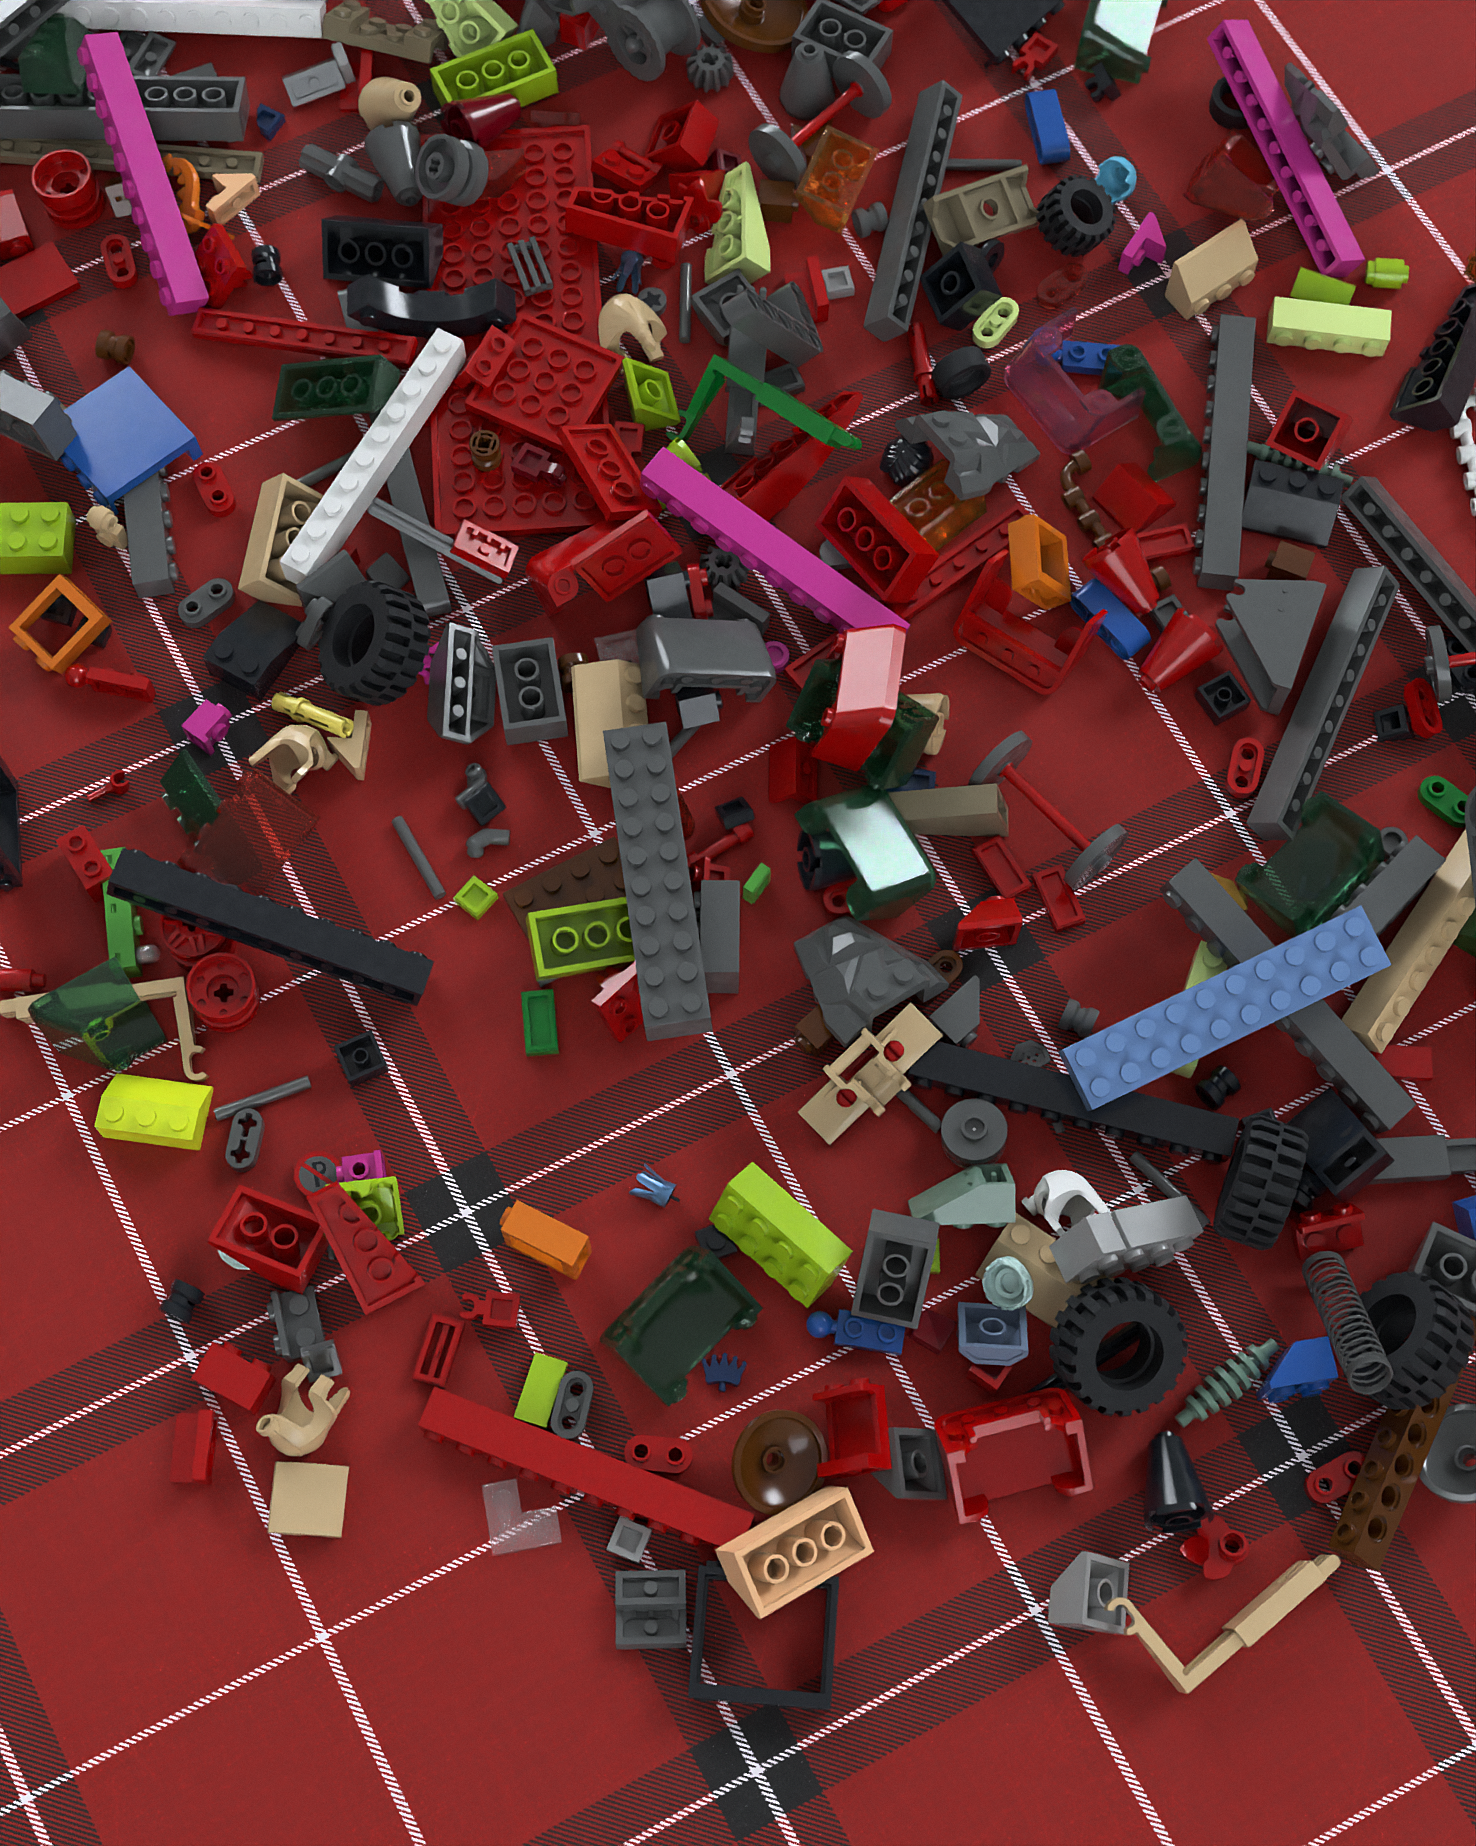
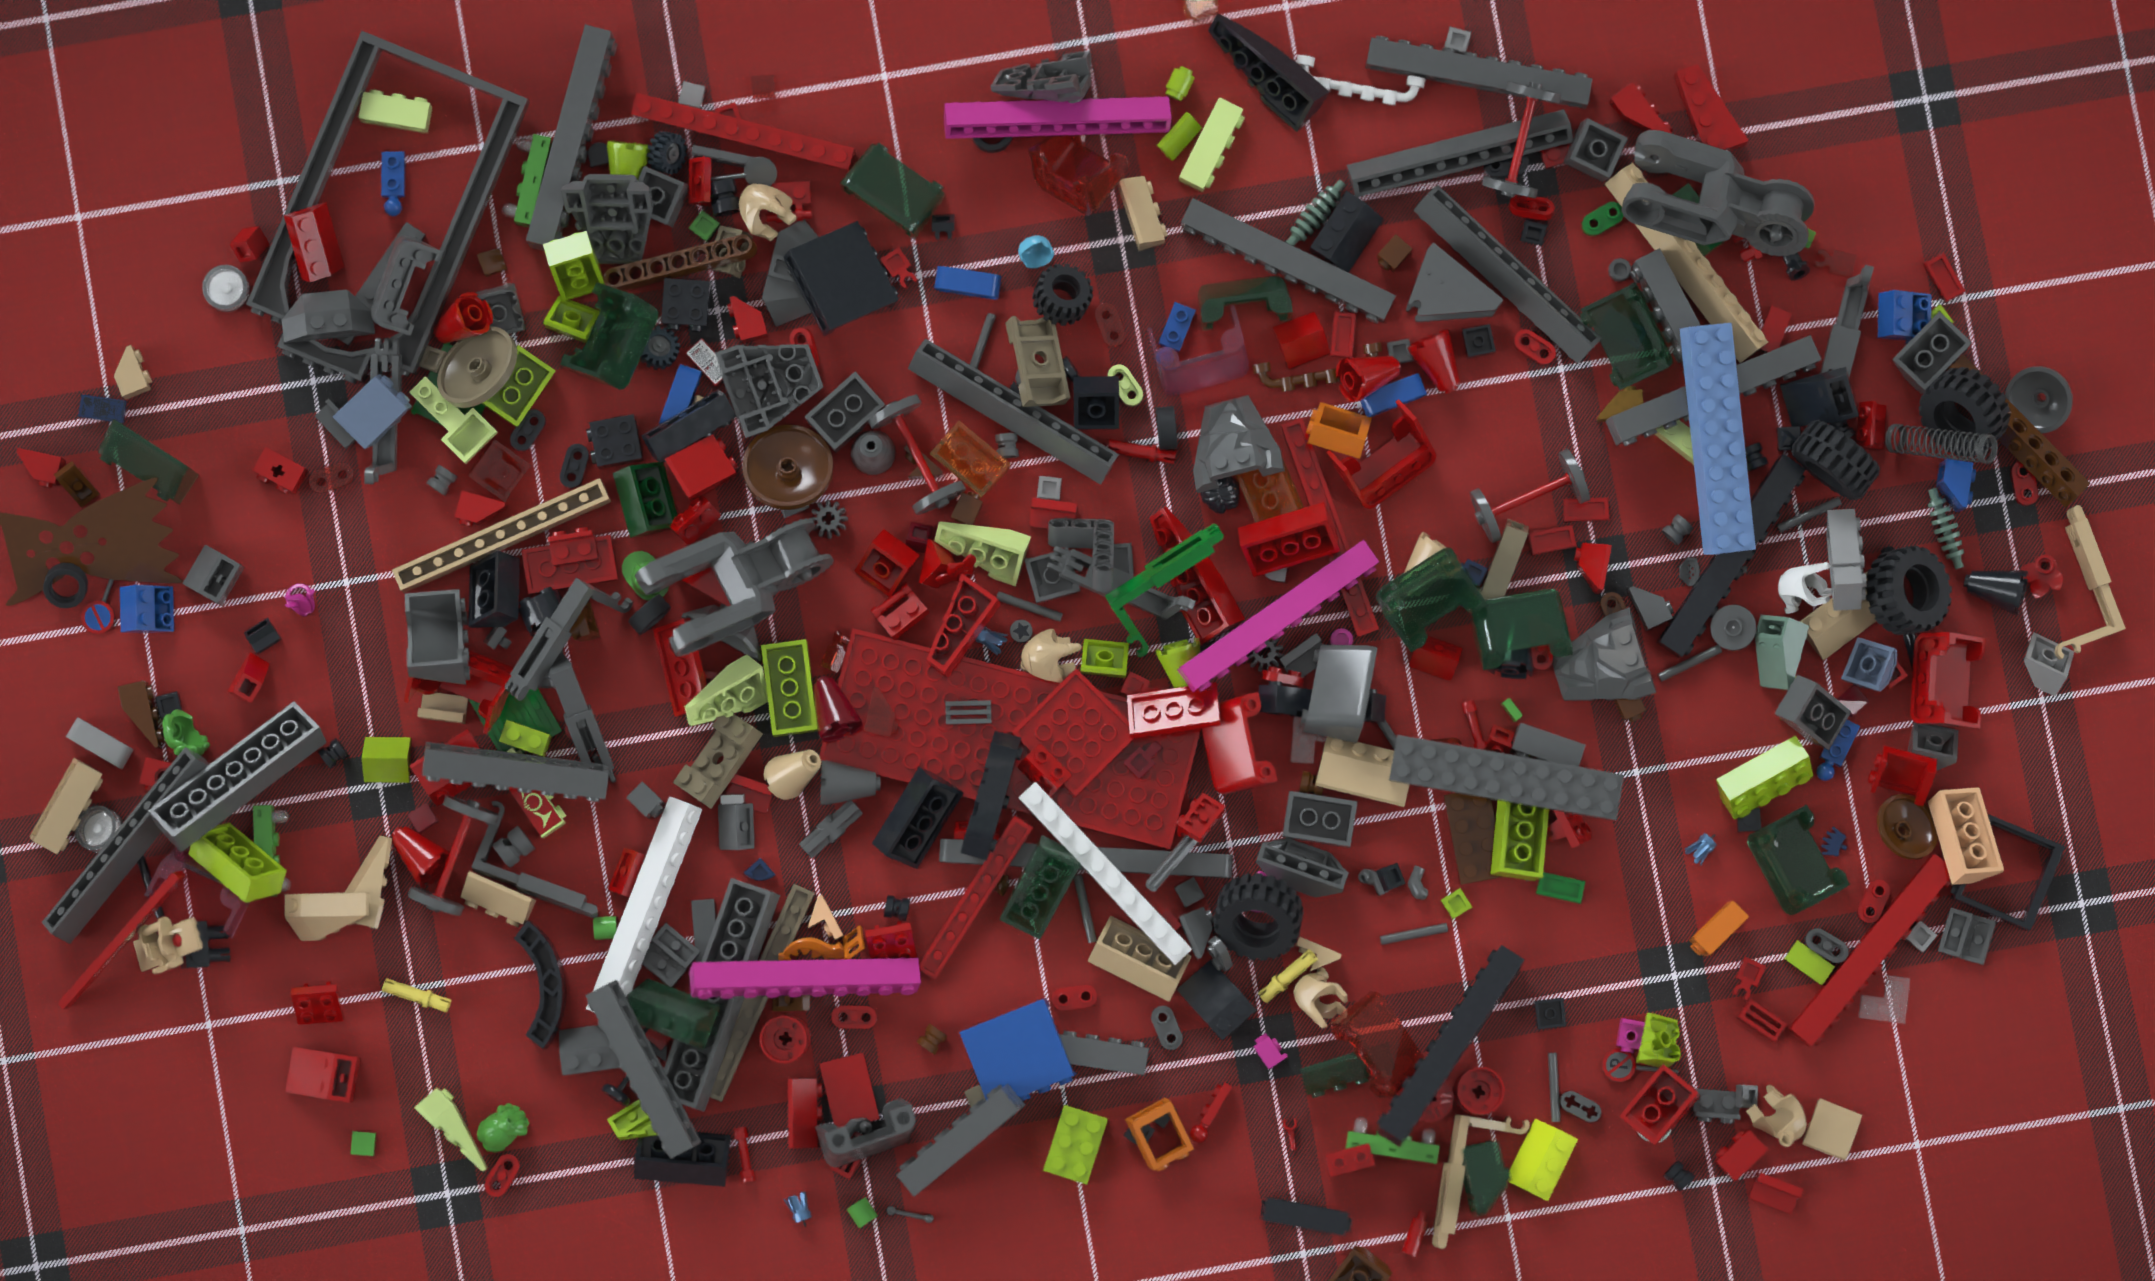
camera: 70 degrees left, 15 degrees up
(106, 527) = (1090, 1082): tan plate -> none
(364, 1253) = (1692, 1047): red wing -> none
(451, 170) = (879, 746): dark grey wheel -> none
(485, 450) = (1120, 792): reddish brown wheel -> none
(626, 556) = (1260, 720): red tile -> none
(734, 812) = (1454, 707): black tile -> none
(865, 694) = (1414, 588): windscreen -> none
(874, 1078) = (1675, 681): tan piece -> none
(1007, 1283) = (1843, 643): light aqua hair -> none
(1146, 242) = (1092, 247): dark pink slope -> none
(1309, 430) = (1300, 198): red slope -> none

